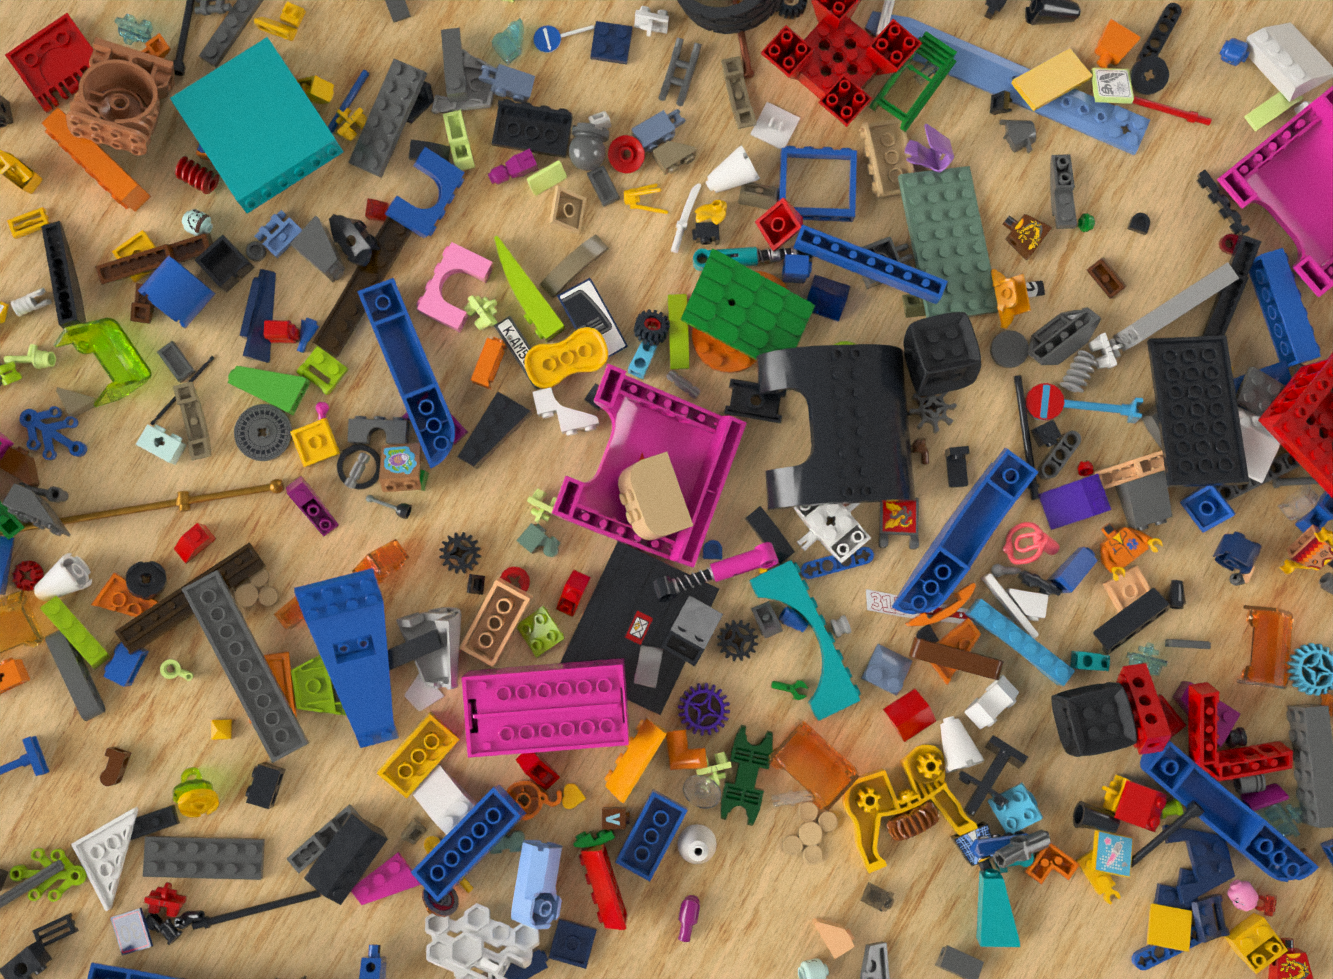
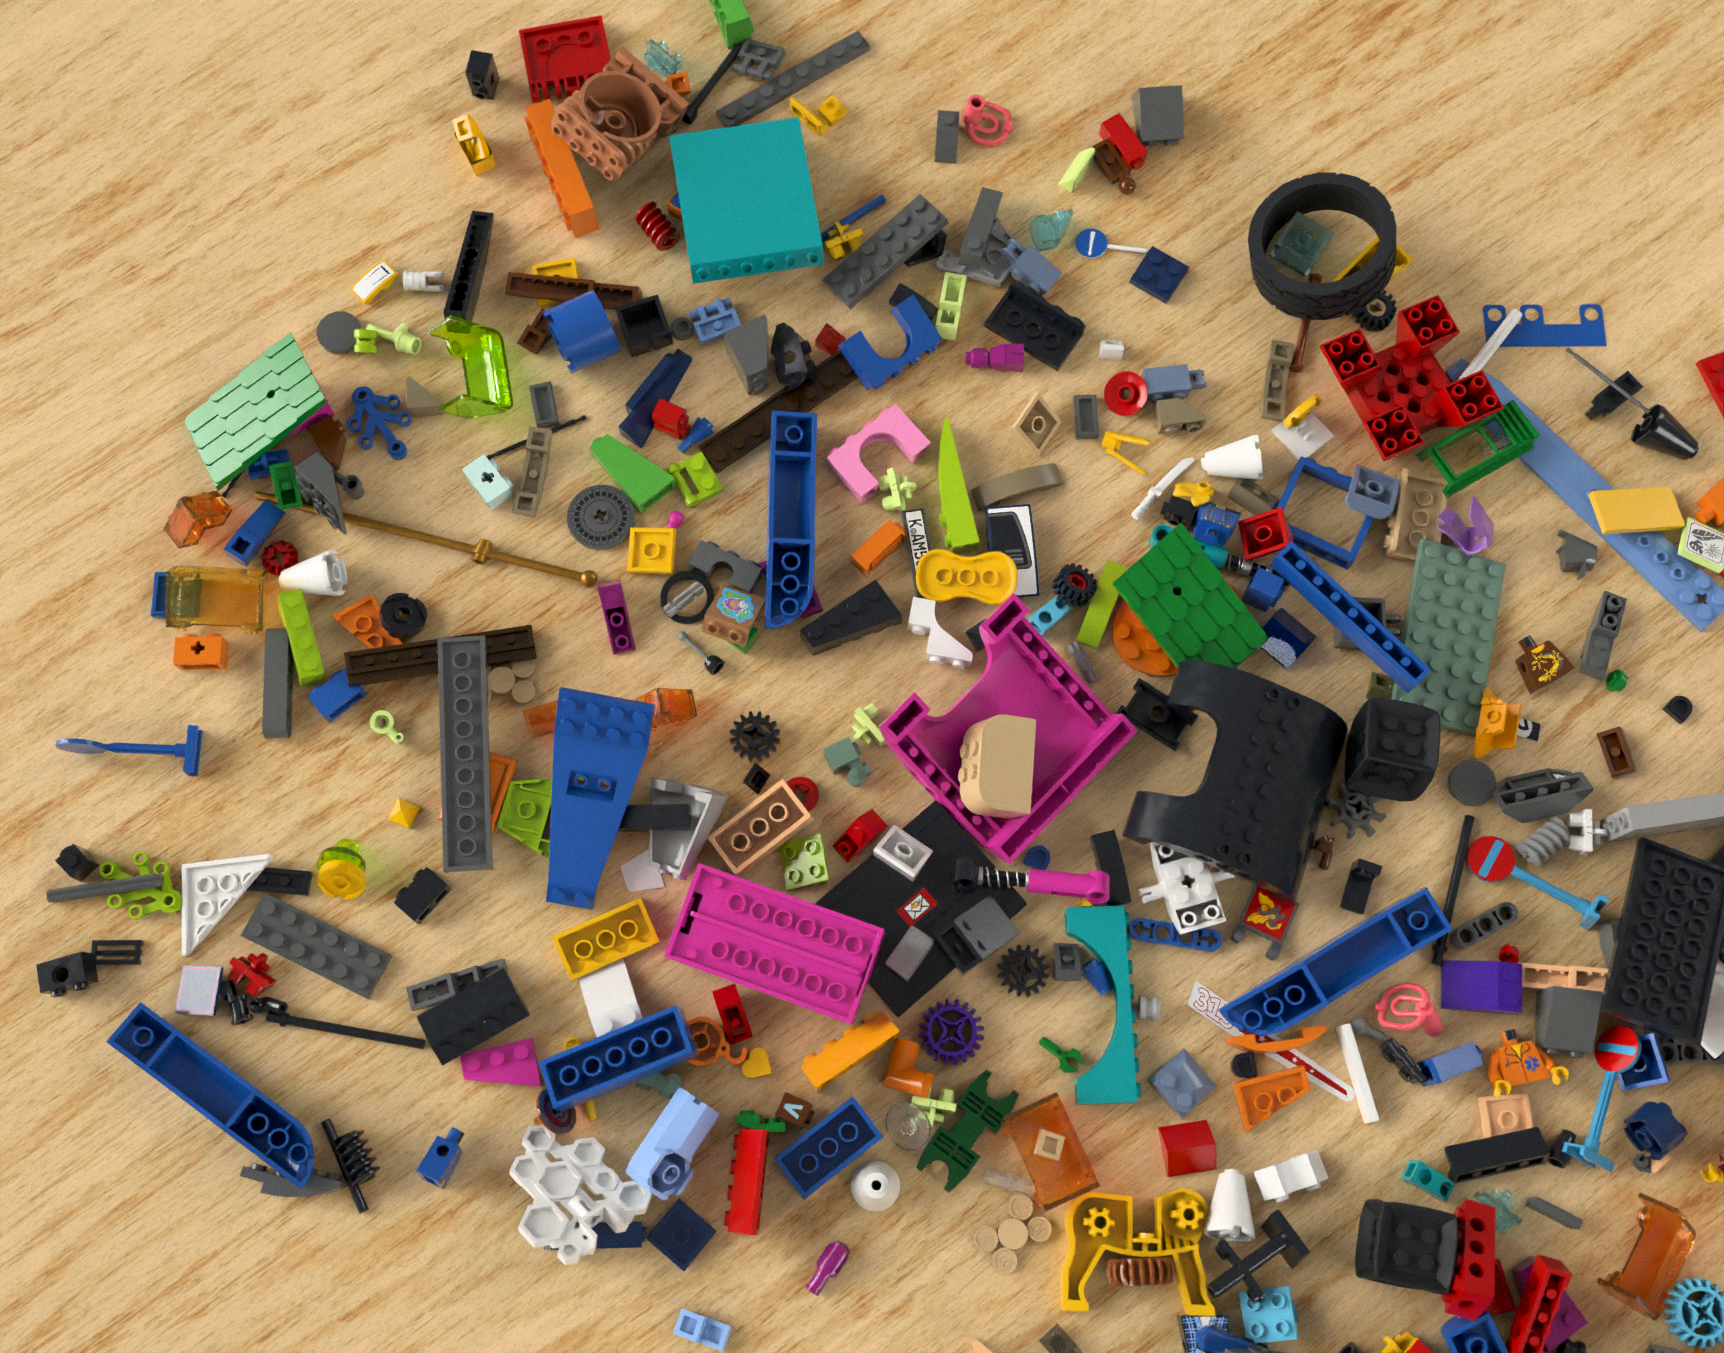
camera: 25 degrees right, 10 degrees down
(40, 211) = (459, 207): yellow tile -> none
(115, 767) = (271, 801): reddish brown leg -> none
(194, 542) = (472, 598): red slope -> none
(197, 222) = (634, 273): light aqua head -> none
(317, 89) = (825, 193): yellow slope -> none
(413, 832) = (560, 1023): dark tan slope -> none
(546, 178) = (1028, 382): yellowish green slope -> none
(587, 147) = (1087, 368): dark grey tile -> none
(610, 592) = (902, 852): none -> white slope
(651, 21) = (1212, 270): white hips -> none
(676, 62) = (1220, 321): dark grey piece -> none
(737, 231) = (1214, 523): none -> blue torso
(768, 111) = (1302, 411): none -> yellow tile
(810, 760) = (1049, 1145): none -> tan plate
(847, 154) = (1372, 492): none -> sand blue slope
(956, 658) = (1270, 1103): reddish brown beam -> none
(1000, 103) = (1567, 512): black tile -> none
(1020, 641) = (1372, 1151): dark azure arch -> none
(1030, 603) = (1383, 1080): white slope -> none
(1046, 434) = (1478, 894): black brick -> none
(1190, 508) = (1615, 1053): none -> dark azure piece

